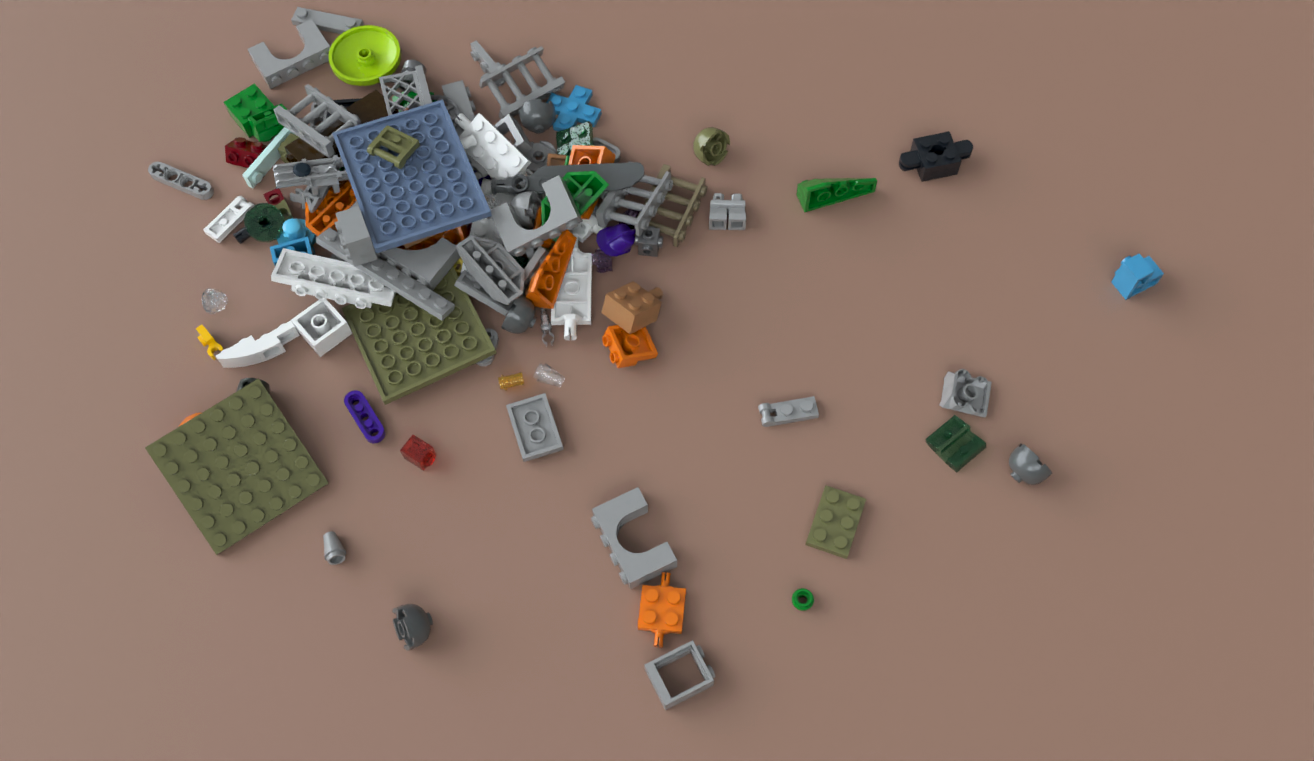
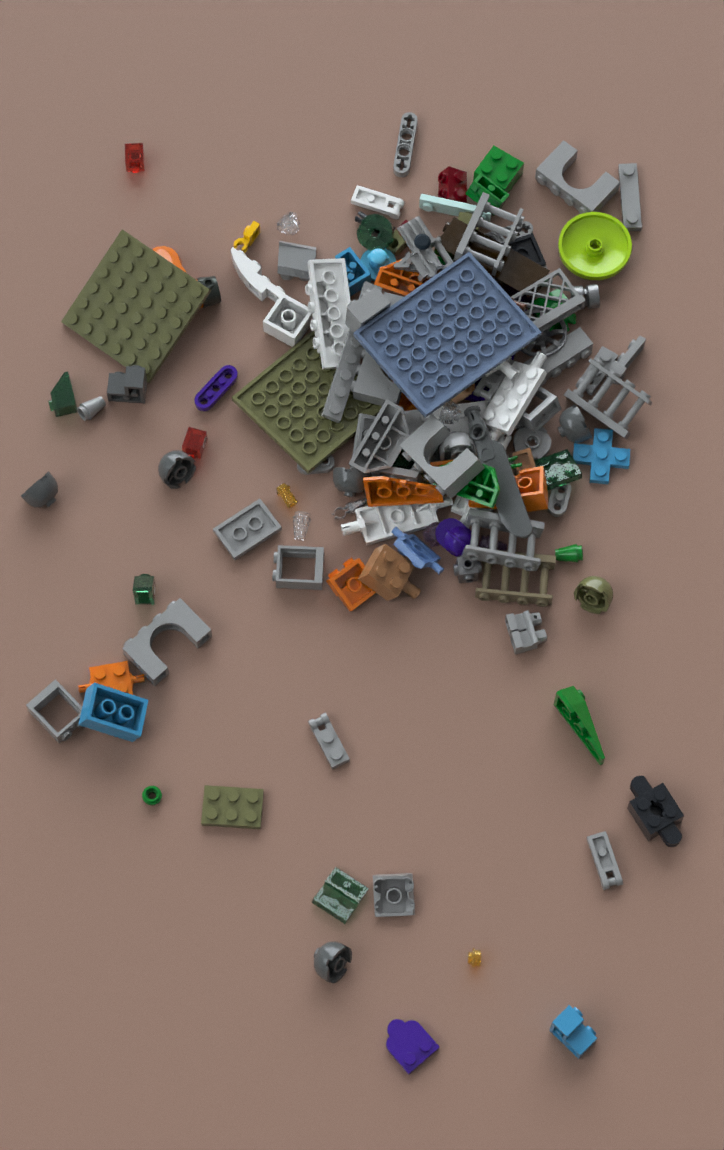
camera: 70 degrees right, 5 degrees up
(60, 428) = (134, 157): none -> clear red brick
(258, 306) = (294, 259): none -> light grey slope
(309, 573) = (62, 397): none -> clear green slope
(327, 500) = (128, 386): none -> dark grey brick
(395, 141) = (473, 308): olive plate -> none
(439, 477) = (176, 468): none -> dark grey cylinder
(484, 93) = (605, 356): none -> light grey plate
(567, 544) = (144, 589): none -> clear green slope
(600, 370) = (299, 552): none -> light grey window
(612, 279) = (417, 551): none -> medium blue plate
(661, 156) = (570, 553): none -> green cone
(703, 610) = (113, 712): none -> dark azure brick
(971, 209) = (604, 860): none -> light grey plate
(1046, 339) = (474, 958): none -> clear yellow plate
(1123, 420) = (409, 1044): none -> dark purple plate

